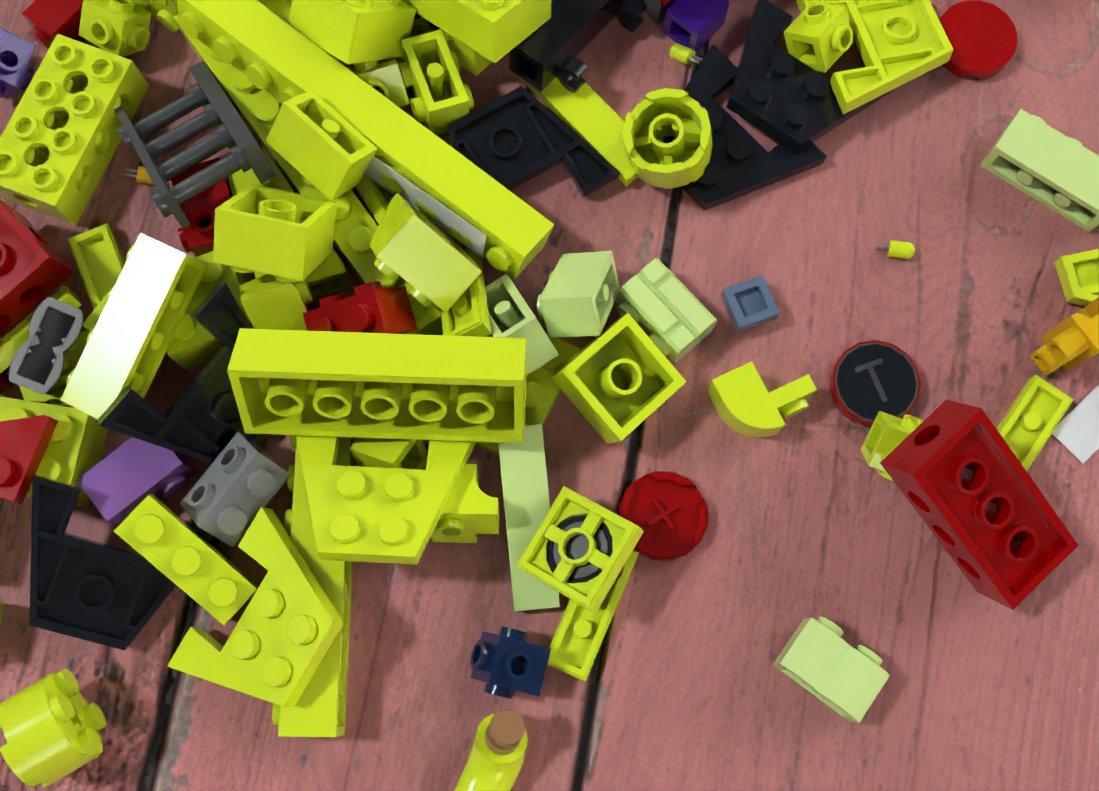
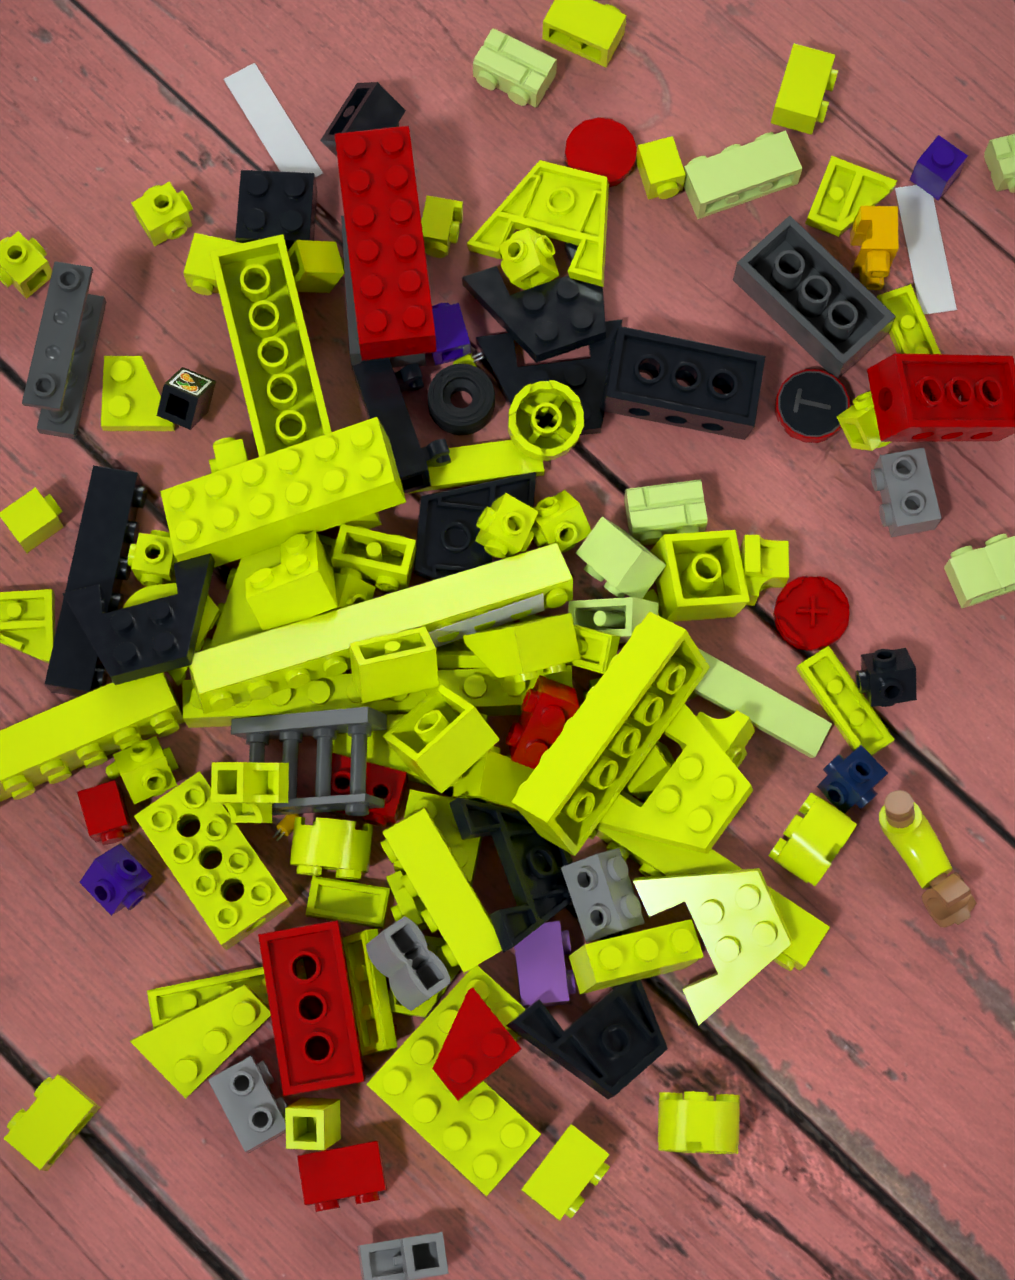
camera: 60 degrees left, 0 degrees up
(127, 209) = (331, 846): none -> neon yellow brick
(129, 99) = (249, 789): none -> neon yellow brick
(417, 661) = (813, 840): none -> neon yellow brick
(553, 167) = (506, 527): none -> neon yellow brick
(581, 220) = (560, 522): none -> neon yellow brick
(582, 550) = (807, 679): neon yellow piece -> none
(636, 46) = (461, 378): none -> black tyre
(642, 632) = (887, 677): none -> black brick
(671, 434) = (764, 564): none -> neon yellow brick
(748, 405) = (777, 500): neon yellow brick -> none
(750, 303) = (698, 449): sand blue plate -> none
(816, 218) = (697, 365): none -> black brick
(852, 530) = (906, 492): none -> light grey brick
(898, 249) = (724, 320): neon yellow piece -> none
(985, 311) = (813, 297): none -> dark grey brick
(1002, 95) = (660, 168): none -> neon yellow brick

